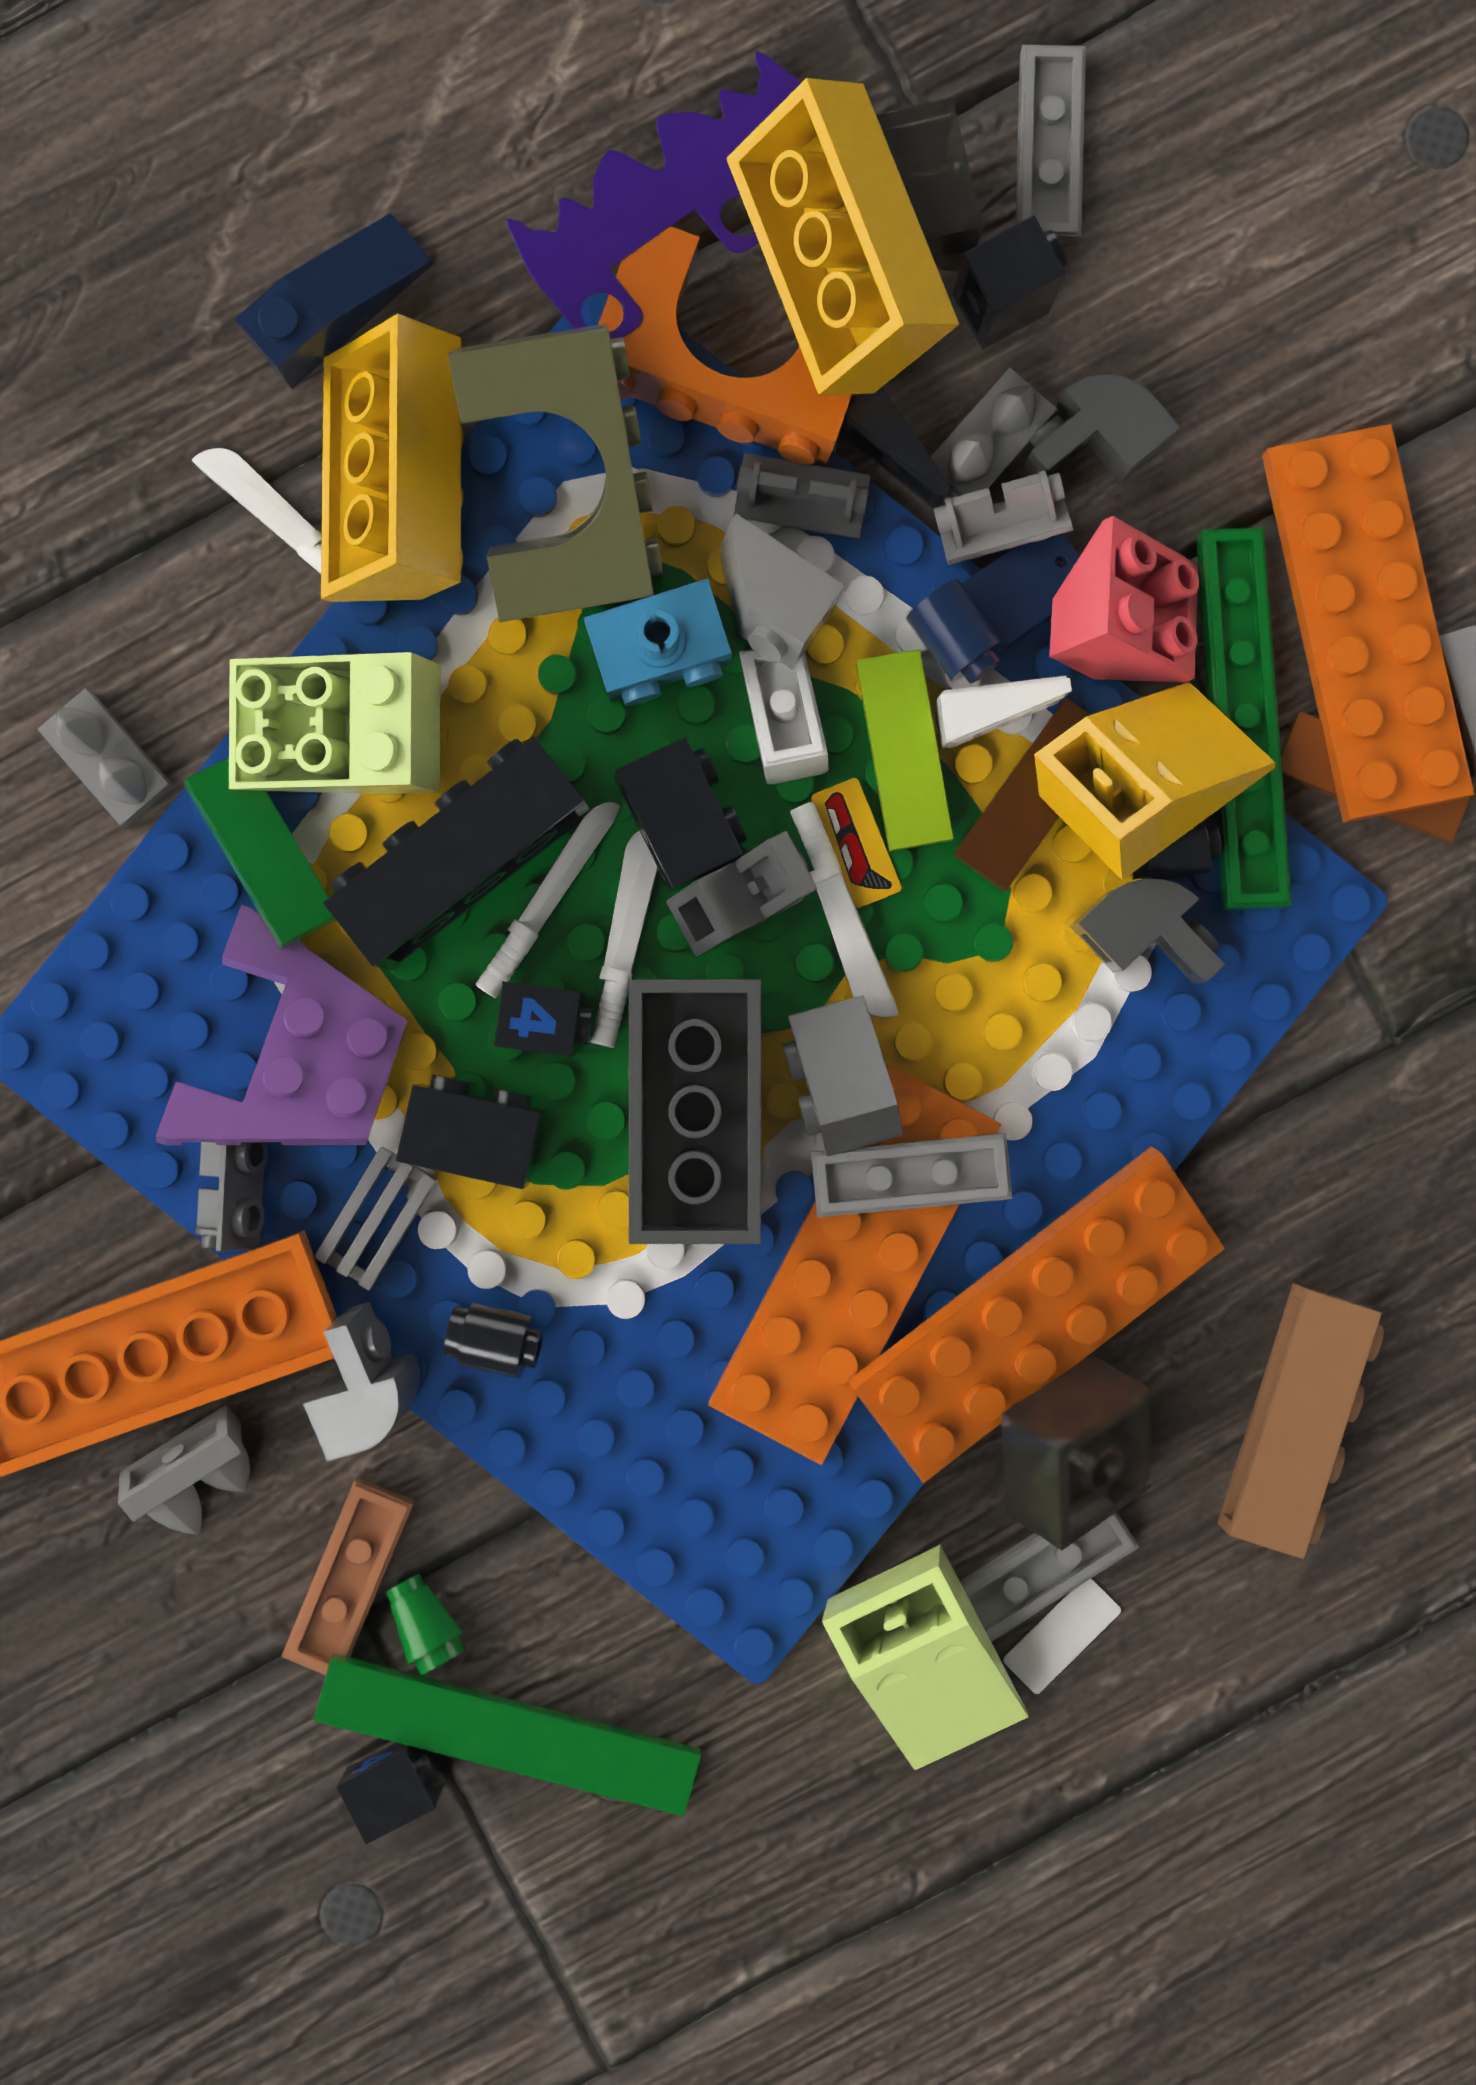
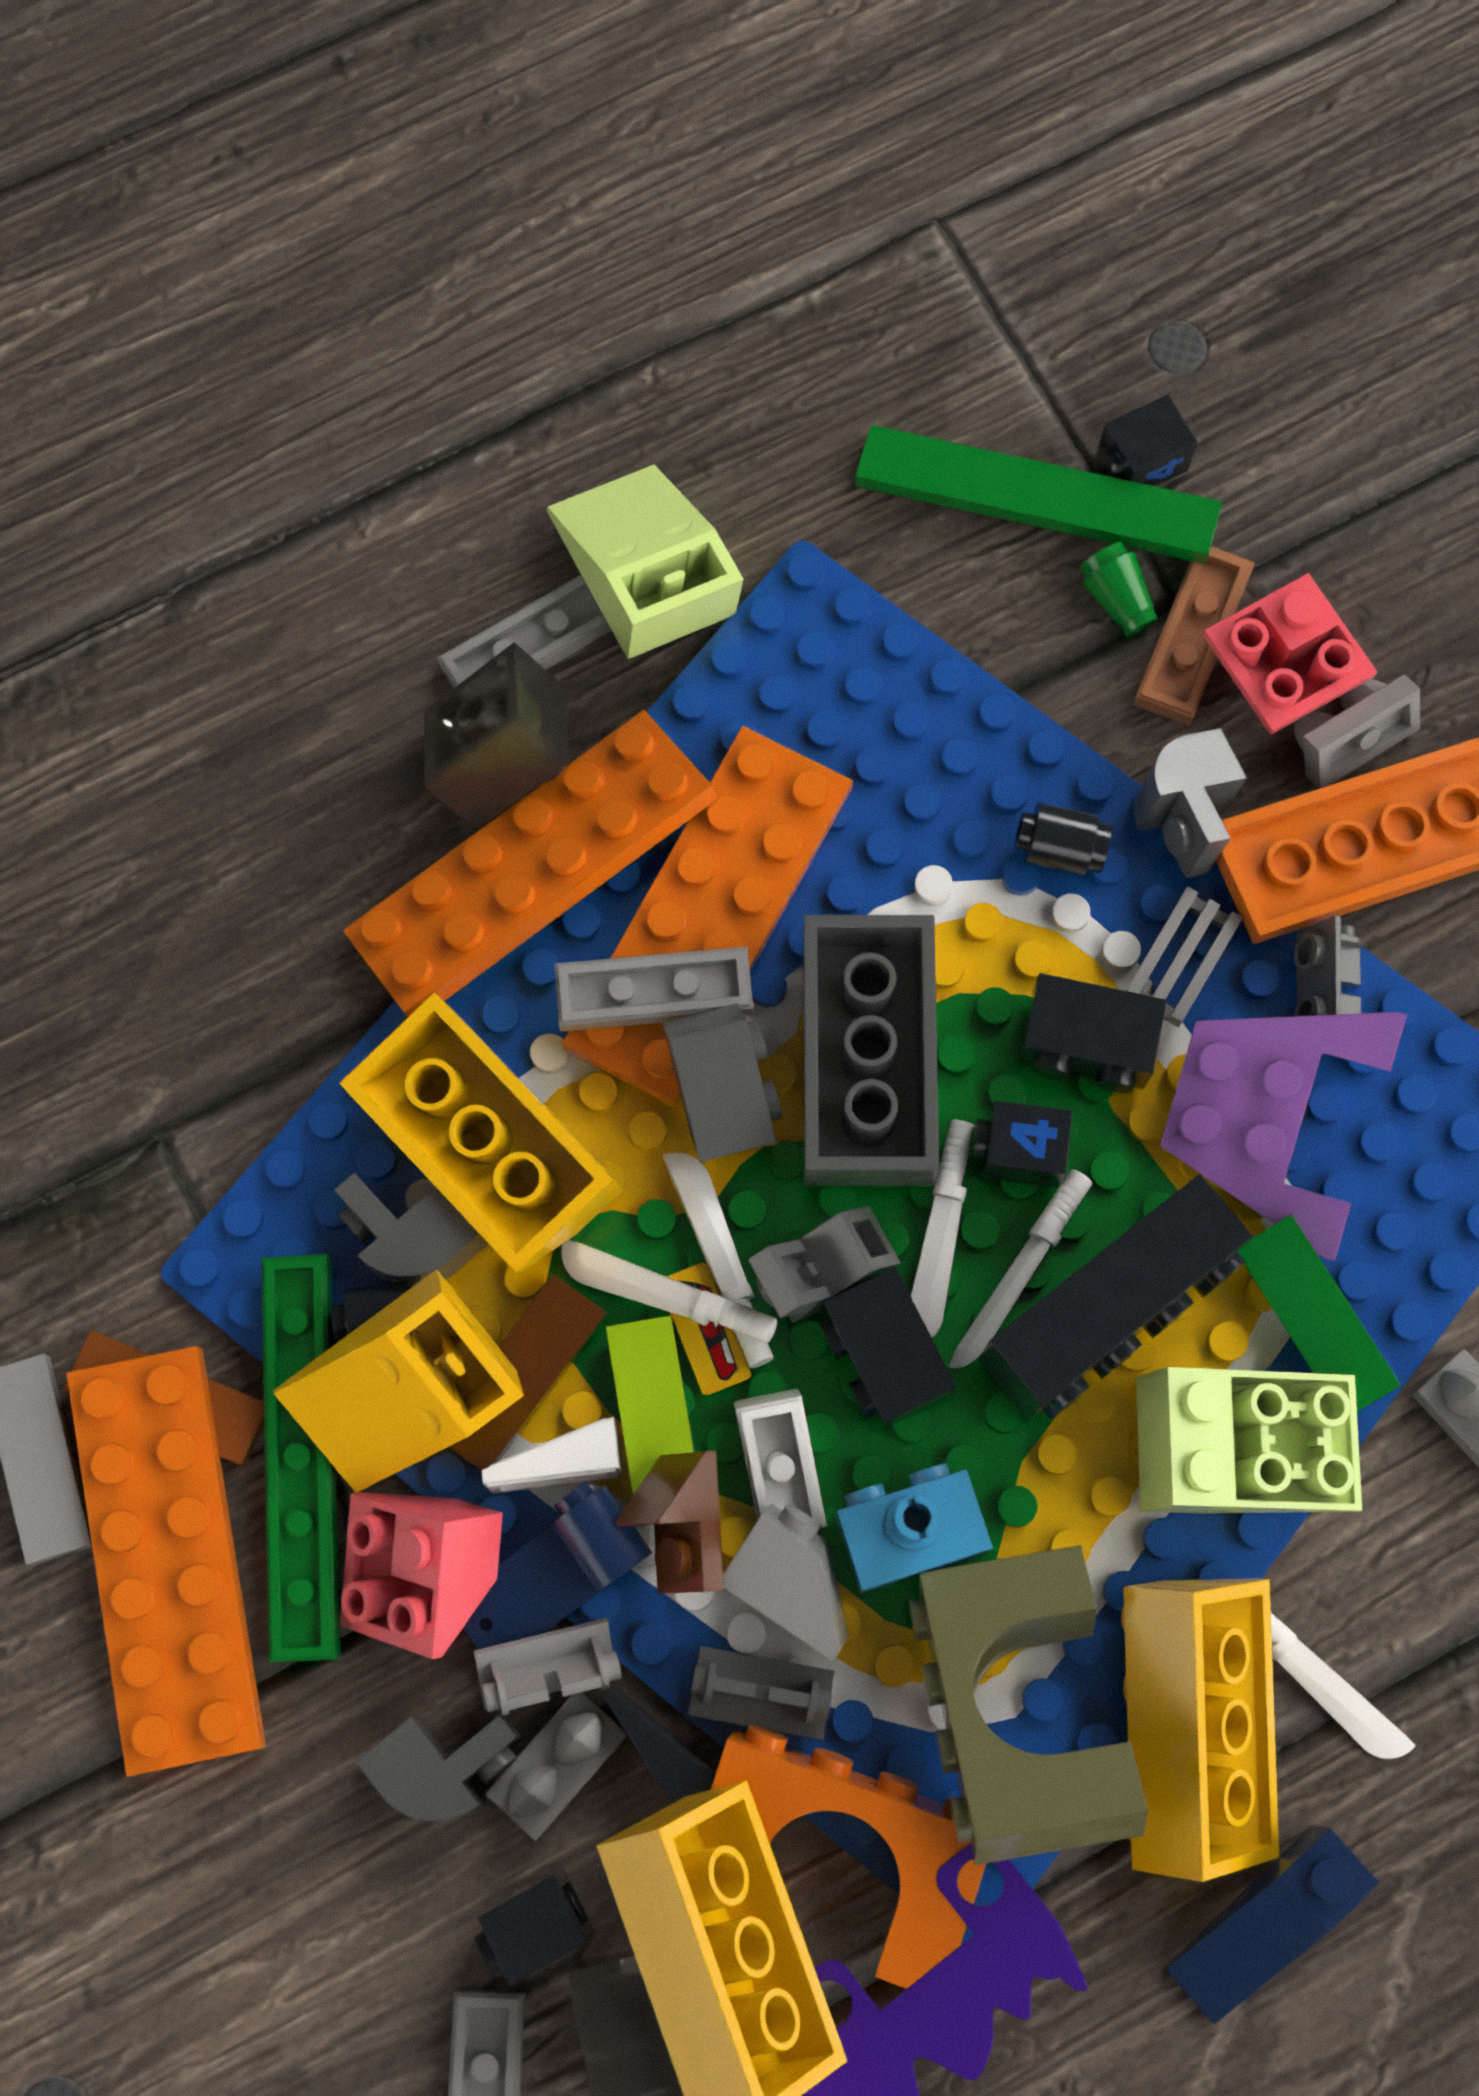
camera: 175 degrees right, 15 degrees down
(251, 1542) = (1289, 653): none -> coral slope
(879, 650) = (684, 1507): none -> reddish brown slope
(902, 874) = (642, 1285): none -> white piece
(1061, 1635) = (512, 583): white sticker -> none
(1081, 1023) = (480, 1135): none -> yellow slope
(1300, 1421) = (276, 770): medium nougat brick -> none

